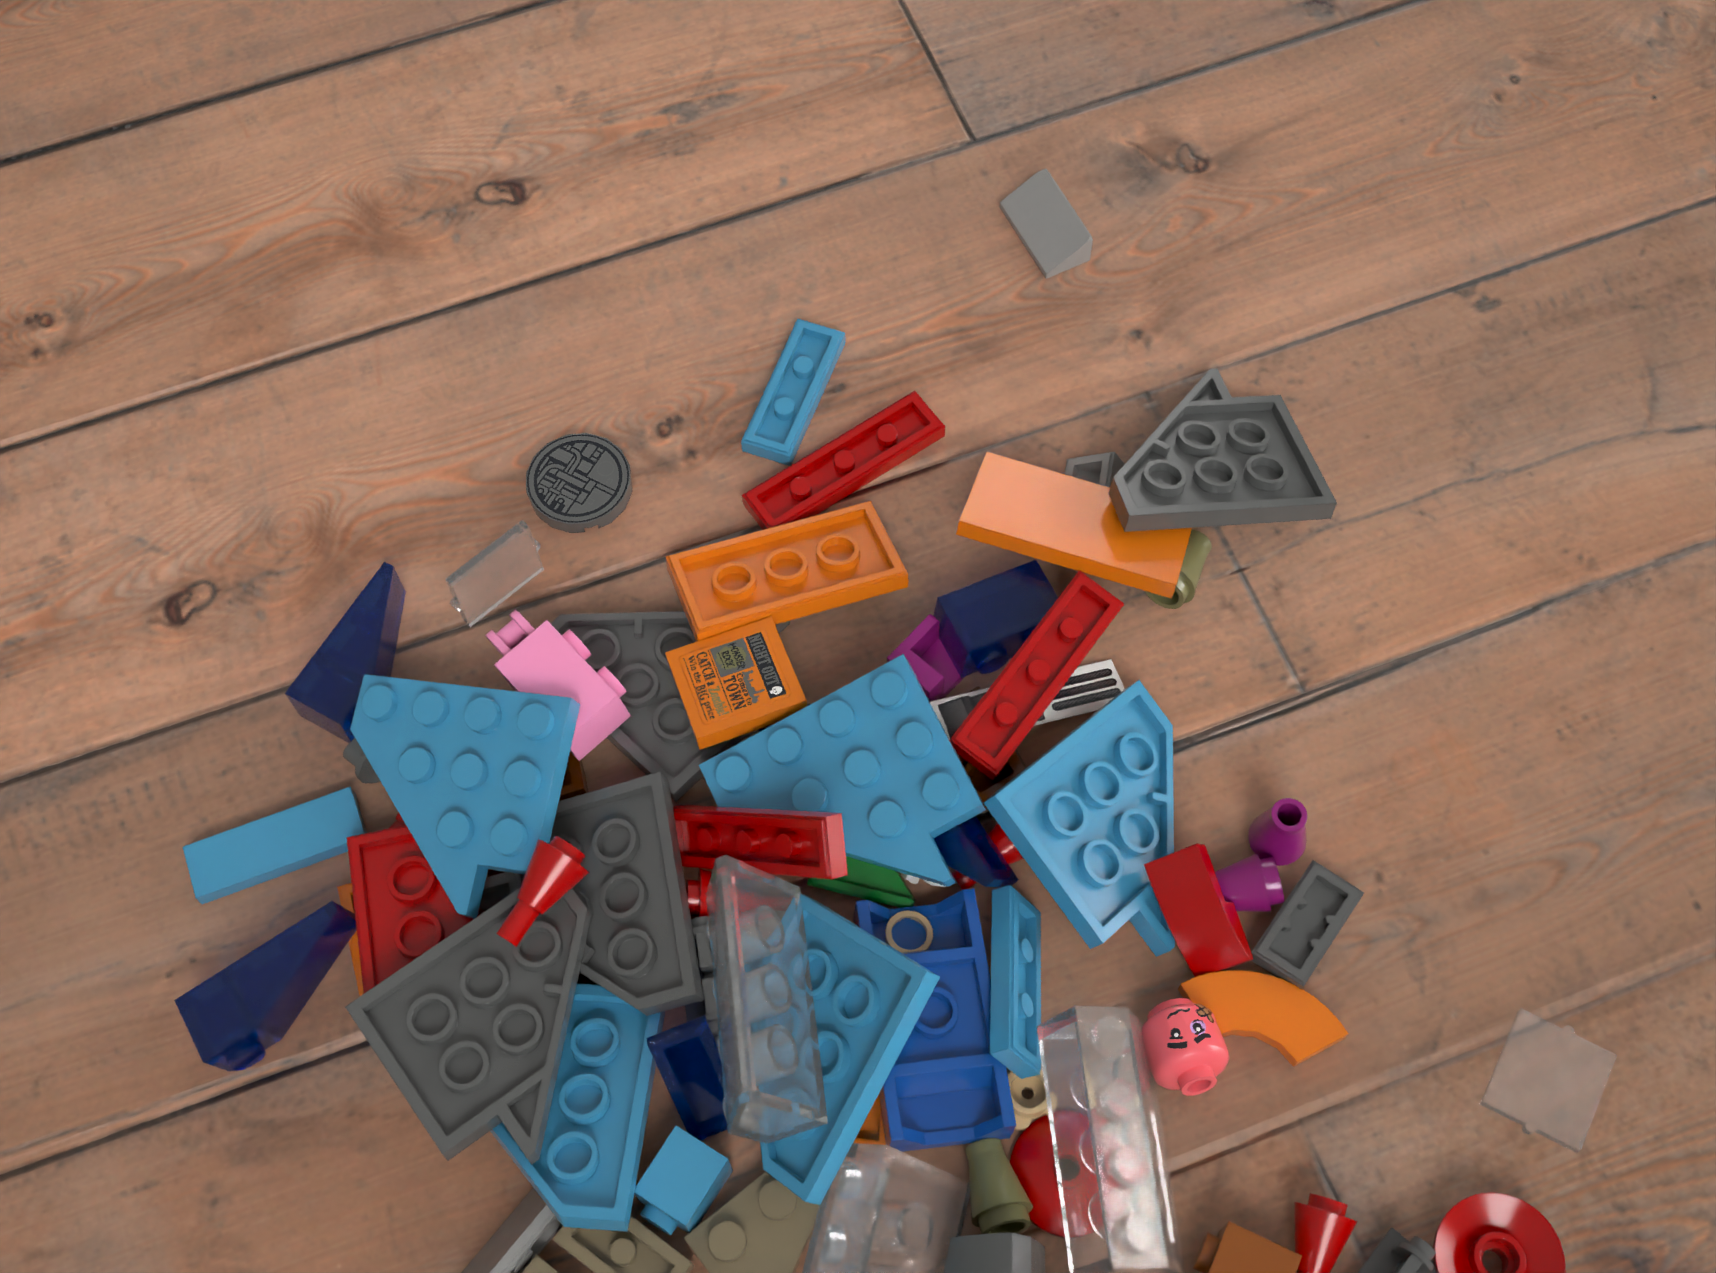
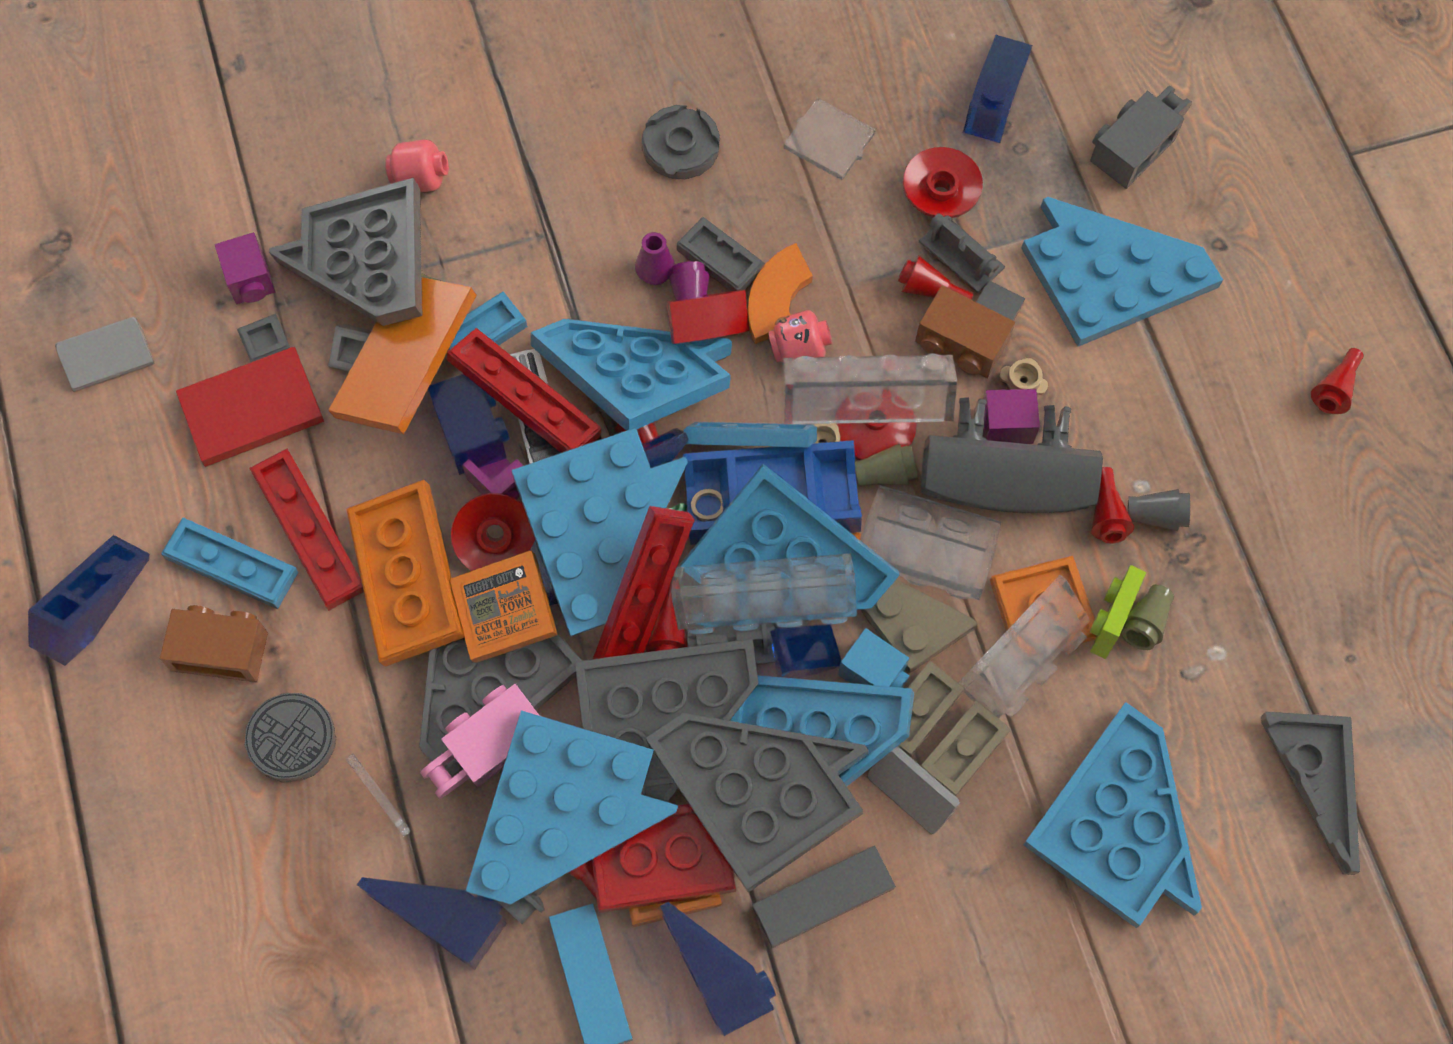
camera: 90 degrees left, 5 degrees up
(366, 1133) = (823, 896): none -> dark grey tile
(549, 876) = (661, 733): red cone -> none
(685, 385) = (214, 643): none -> dark orange piece
(735, 253) = (84, 600): none -> clear blue slope
(839, 654) = (470, 534): none -> red dish
(1000, 381) = (249, 406): none -> red tile
(1090, 385) = (263, 338): none -> dark grey tile
(1150, 633) = (495, 318): none -> dark azure tile
(1181, 345) = (245, 268): none -> magenta brick
(1367, 515) = (419, 161): none -> coral head
(1491, 858) = (680, 142): none -> dark grey tile

